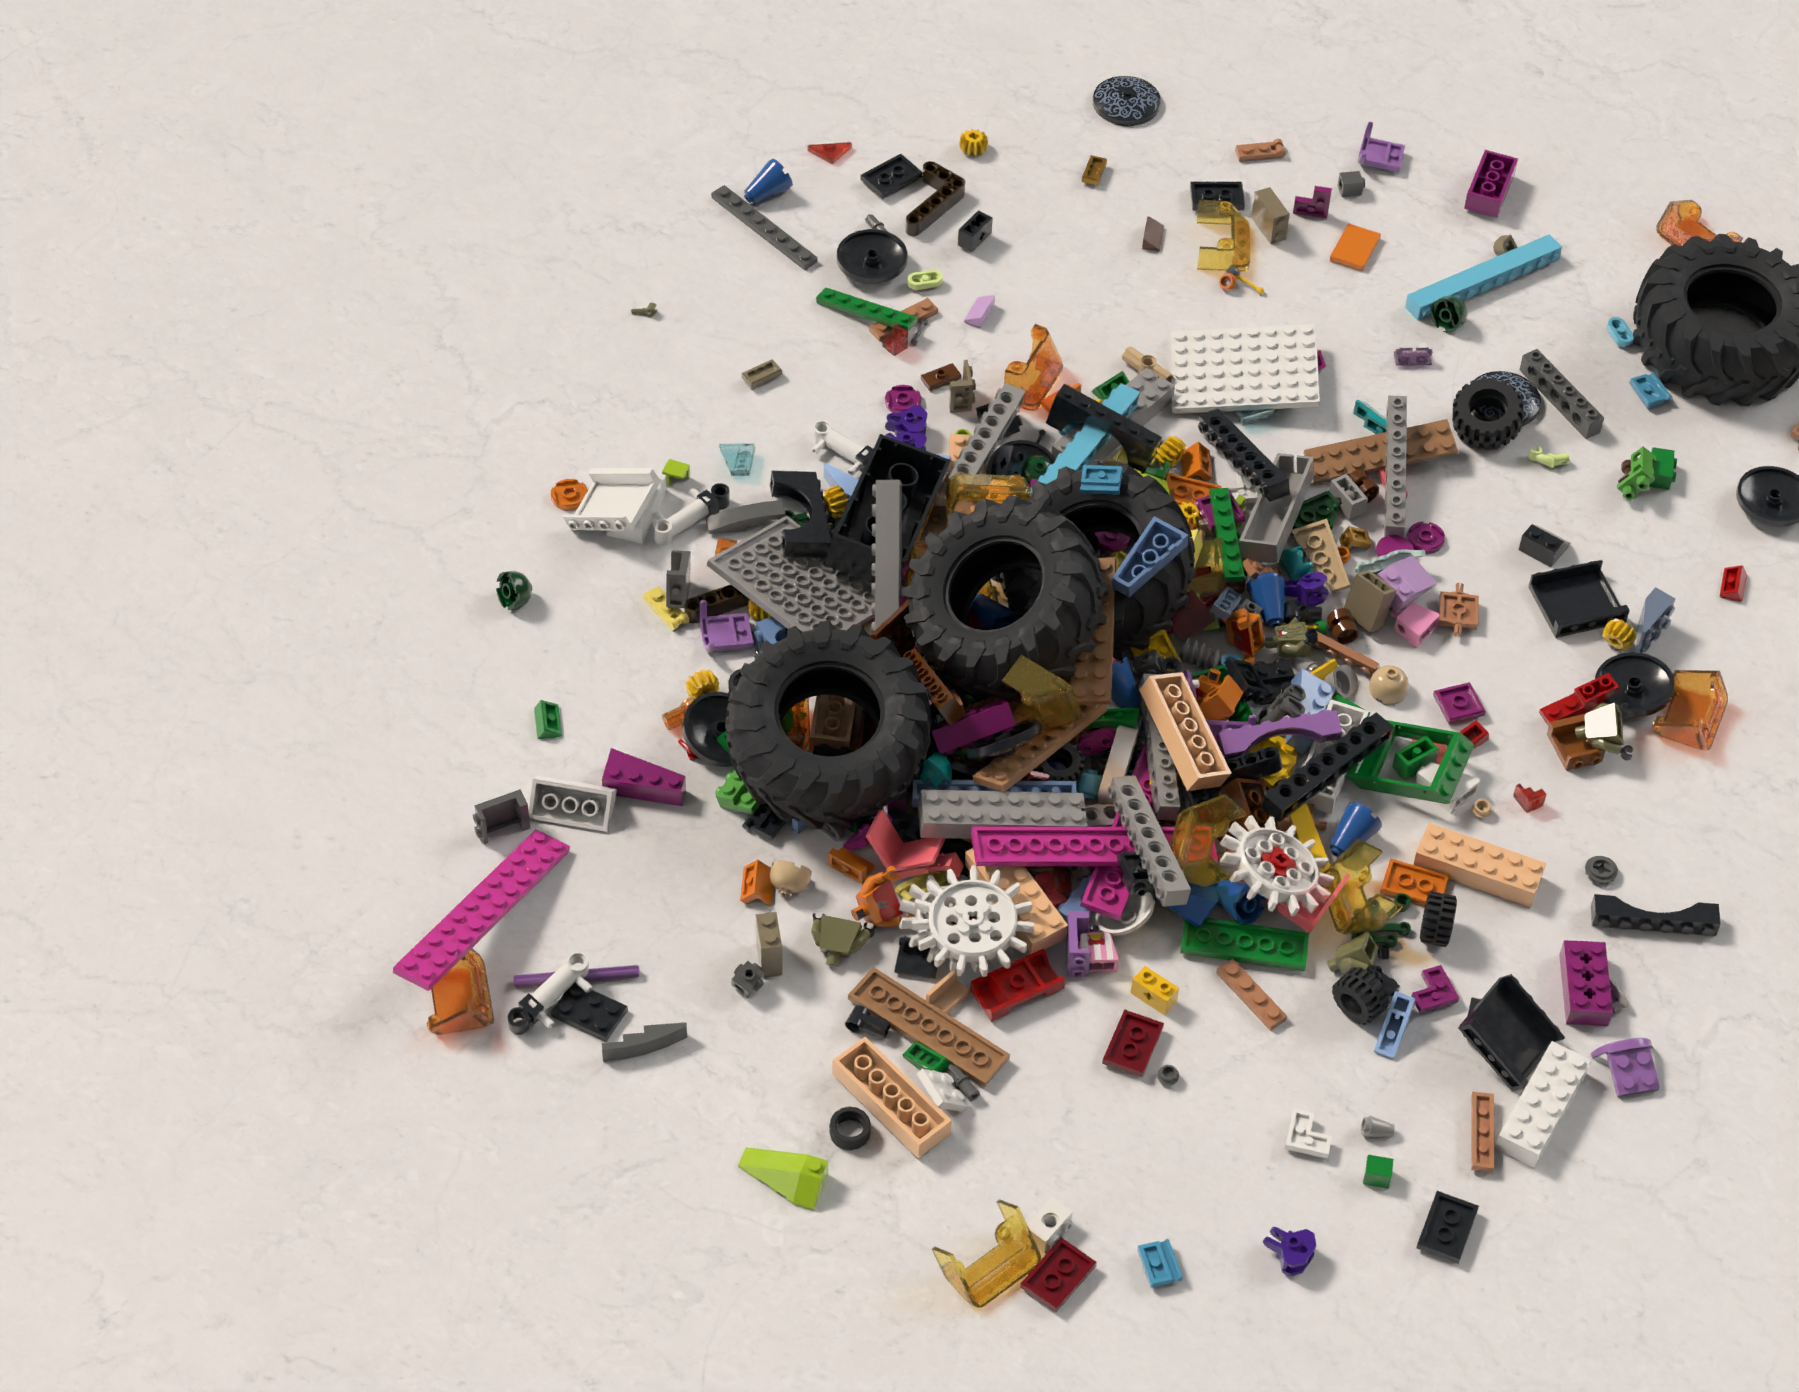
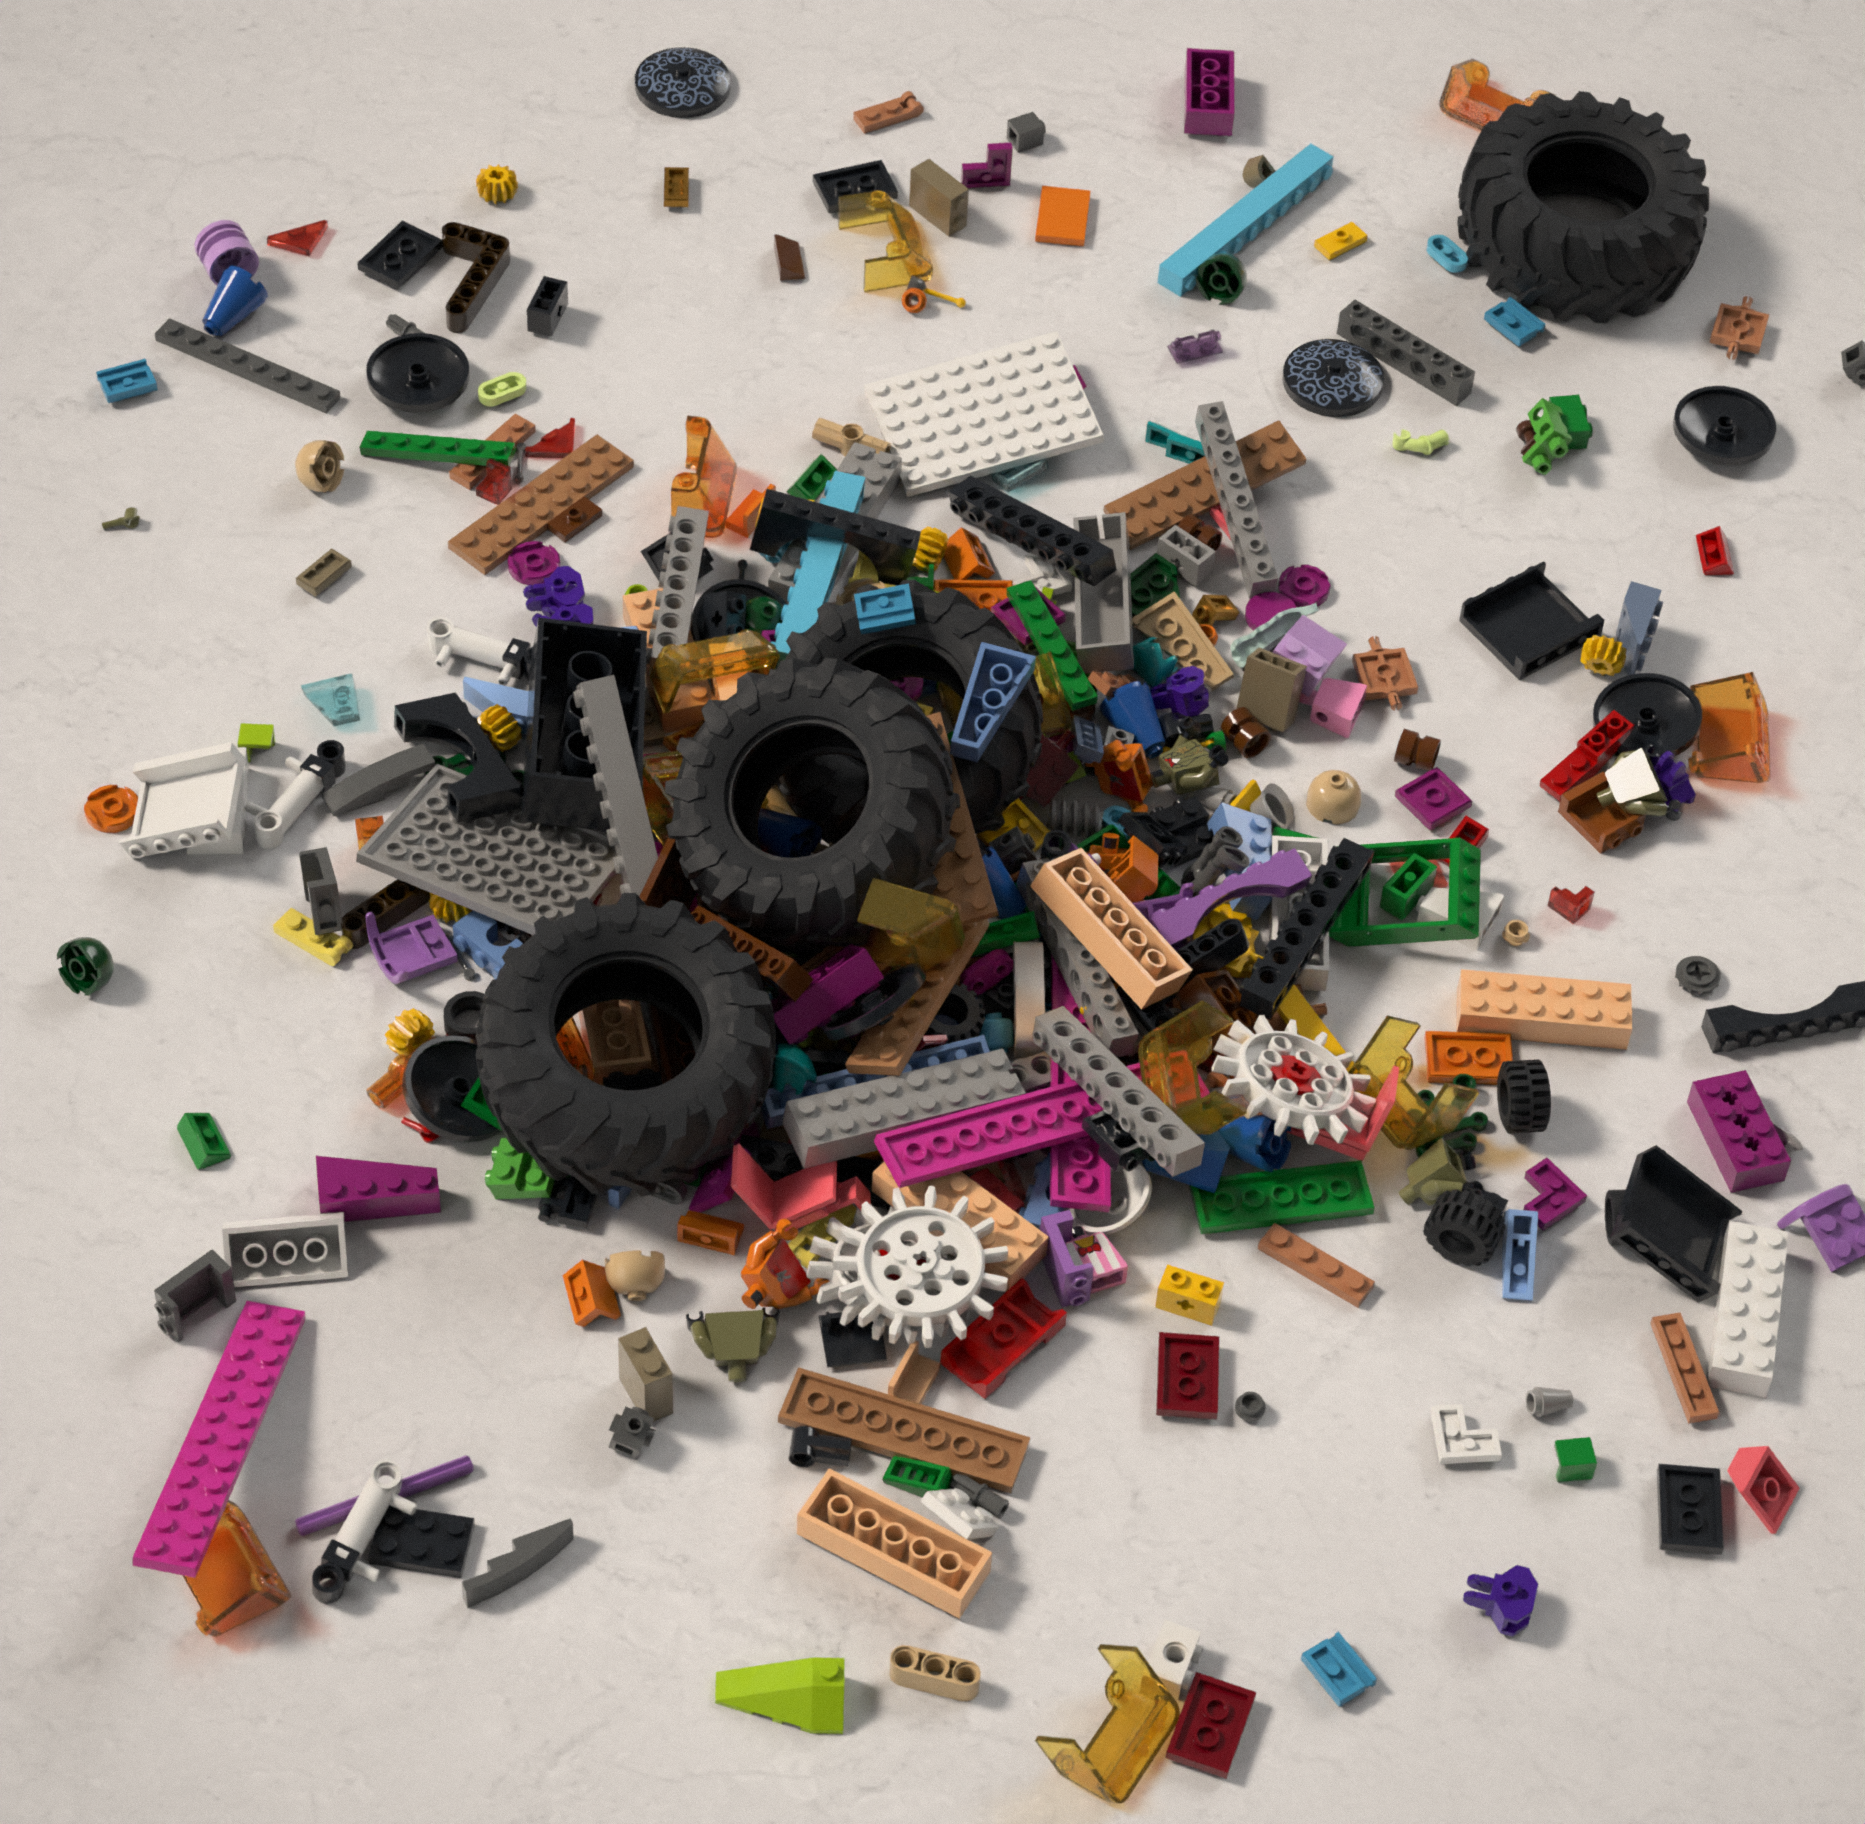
camera: 20 degrees left, 0 degrees up
(681, 219) = (126, 380): none -> dark azure plate
(777, 145) = (223, 246): none -> lavender wheel
(784, 303) = (319, 465): none -> tan cylinder
(854, 1142) = (851, 1624): black tyre -> none
(891, 1197) = (925, 1661): none -> tan beam
(911, 364) = (528, 511): none -> medium nougat plate
(947, 324) = (554, 444): none -> clear red tile
(961, 392) = (616, 531): dark tan bracket -> none
(980, 310) = (593, 414): lavender slope -> none
(1350, 656) = (1268, 770): nougat plate -> none
(1354, 825) = (1366, 1004): blue cone -> none
(1380, 153) = (1048, 81): medium lavender piece -> none
(1457, 666) = (1417, 750): none -> reddish brown wheel
(1489, 433) = (1332, 373): black tyre -> none
(1505, 1225) = (1763, 1484): none -> coral slope
(1542, 545) = (1458, 561): black slope -> none
(1547, 306) = (1340, 240): none -> yellow plate
(1634, 732) = (1674, 779): none -> dark purple hinge

